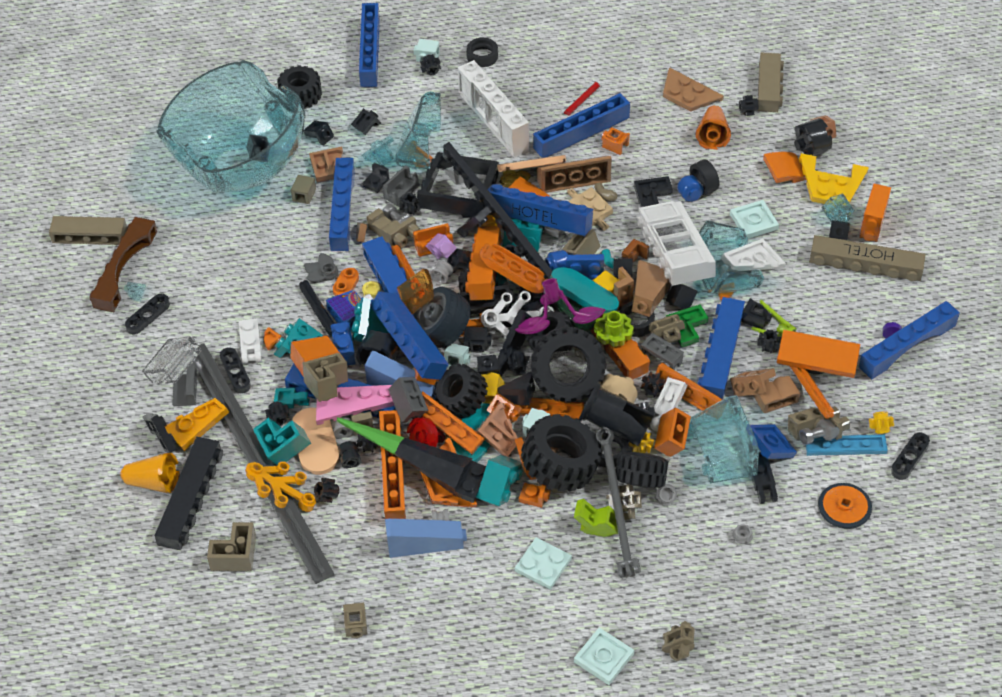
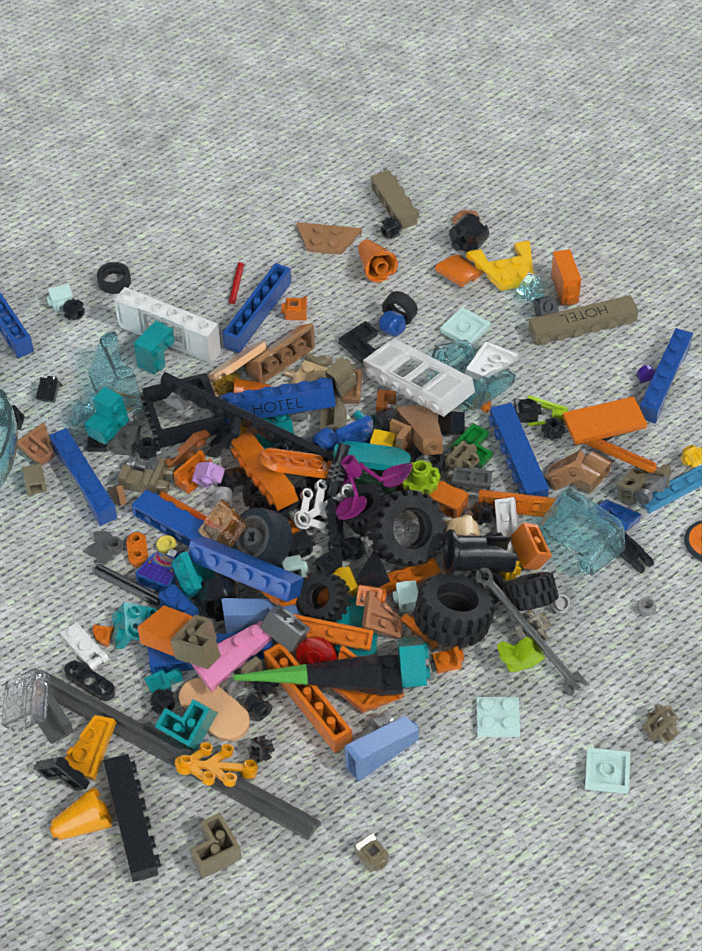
camera: 30 degrees left, 0 degrees up
(389, 163) = (109, 416): none -> teal brick
(440, 216) = (189, 448): none -> dark orange wing
(468, 119) = (152, 345): none -> teal brick
(537, 292) = (336, 472): none -> black hinge
(606, 213) = (342, 376): none -> dark tan brick
(617, 227) = (354, 394): none -> medium nougat plate

